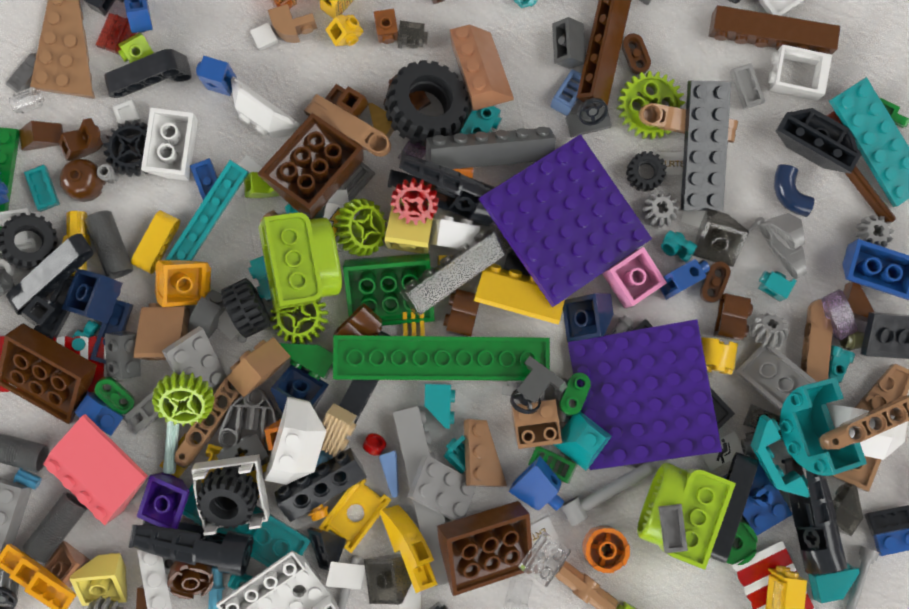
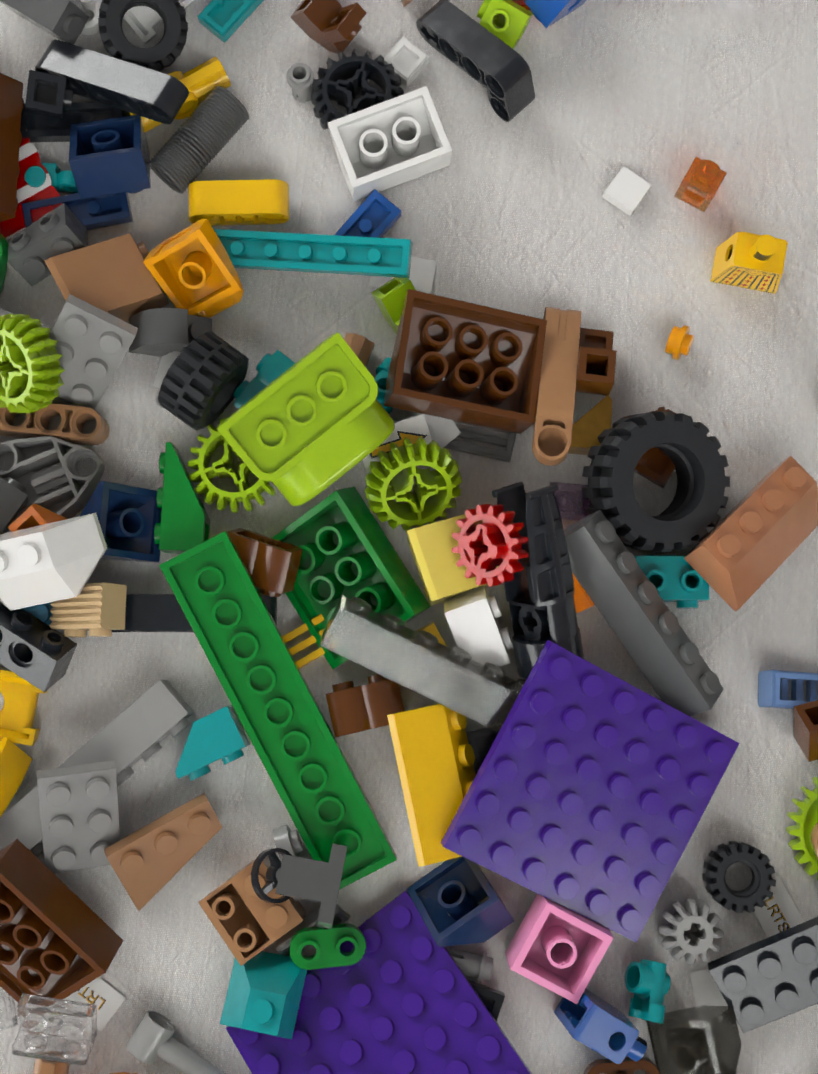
camera: 65 degrees right, 0 degrees up
(81, 180) = (271, 49): reddish brown cylinder -> none
(215, 75) = (527, 153): blue brick -> none
(257, 366) = (125, 443): medium nougat brick -> none
(261, 113) = (509, 246): white wedge -> none
(290, 28) = (660, 218): medium nougat brick -> none
(344, 30) = (700, 300): yellow brick -> none
(359, 53) = (679, 342): none -> light orange plate
(374, 444) = (102, 676): red tile -> none
(386, 26) = (743, 358): dark orange brick -> none
(390, 469) = (79, 717): medium blue slope -> none
(411, 35) = (751, 403): clear smoke brick -> none
(456, 453) = (146, 808): teal bracket -> none
(538, 486) = (158, 960): blue torso -> none
(571, 469) = (193, 996): green slope -> none
(589, 118) = (772, 743): dark grey piece -> none

